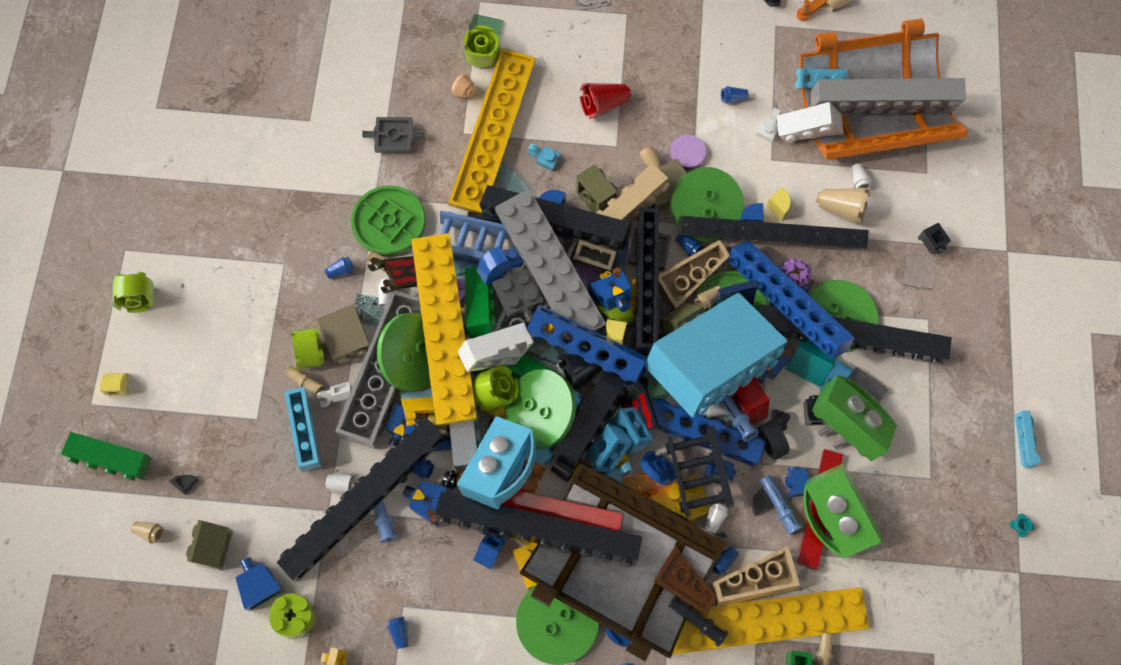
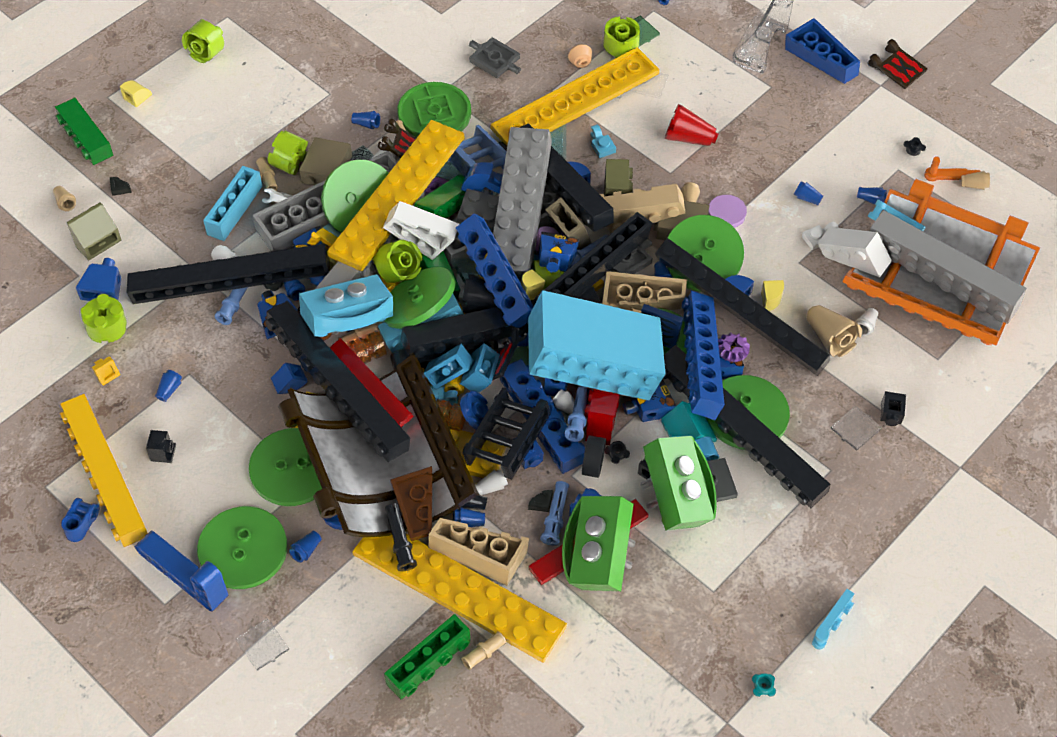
camera: 40 degrees right, 15 degrees down
(780, 63) = (872, 194): none -> blue cone

